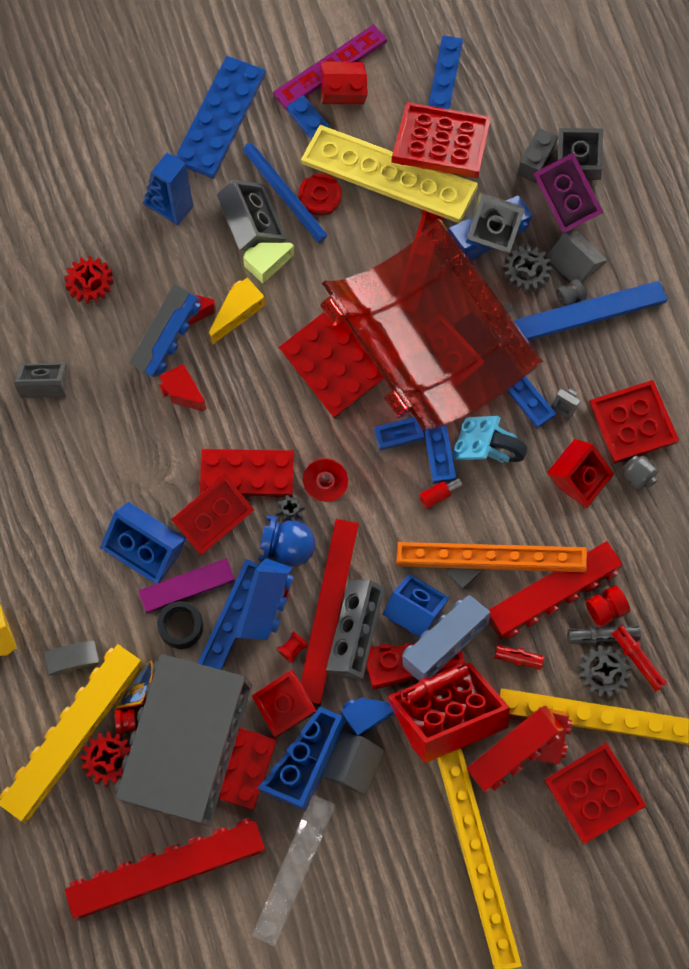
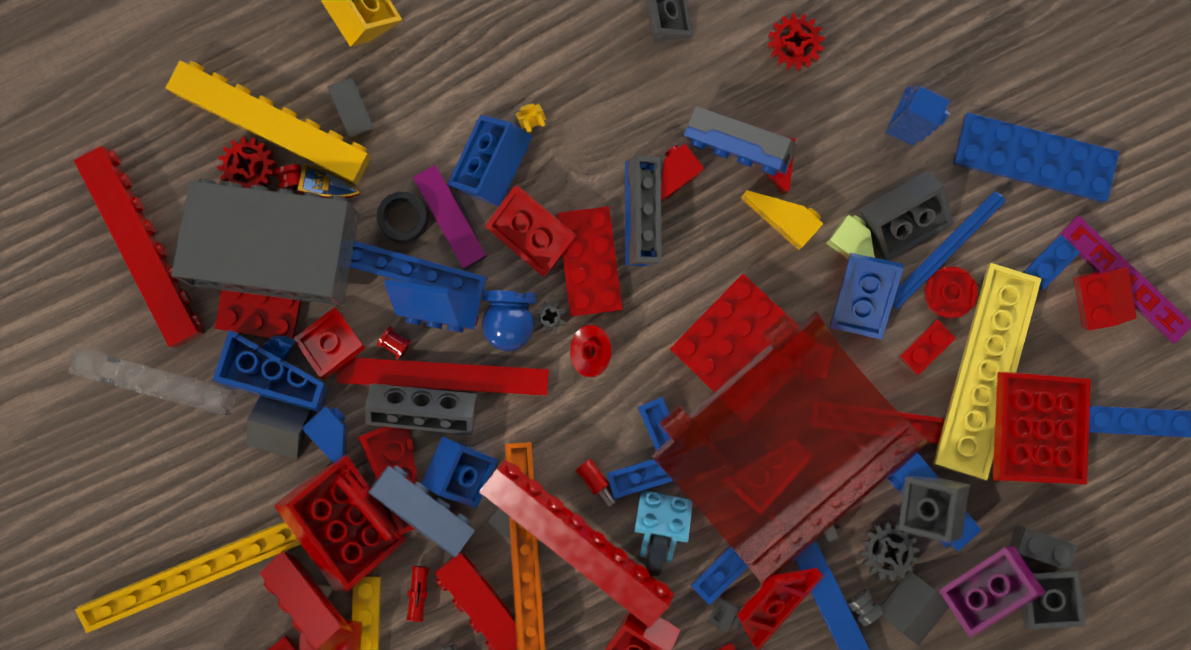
camera: 80 degrees right, 15 degrees up
(111, 500) = (531, 116): none -> yellow plate
(211, 419) = (643, 211): none -> dark grey piece
(278, 748) = (279, 346): none -> blue tile
(312, 252) = (866, 295): none -> blue plate
(362, 218) = (927, 347): none -> red plate
(489, 507) = (577, 543): none -> red brick
(560, 358) = (775, 603): none -> red wing

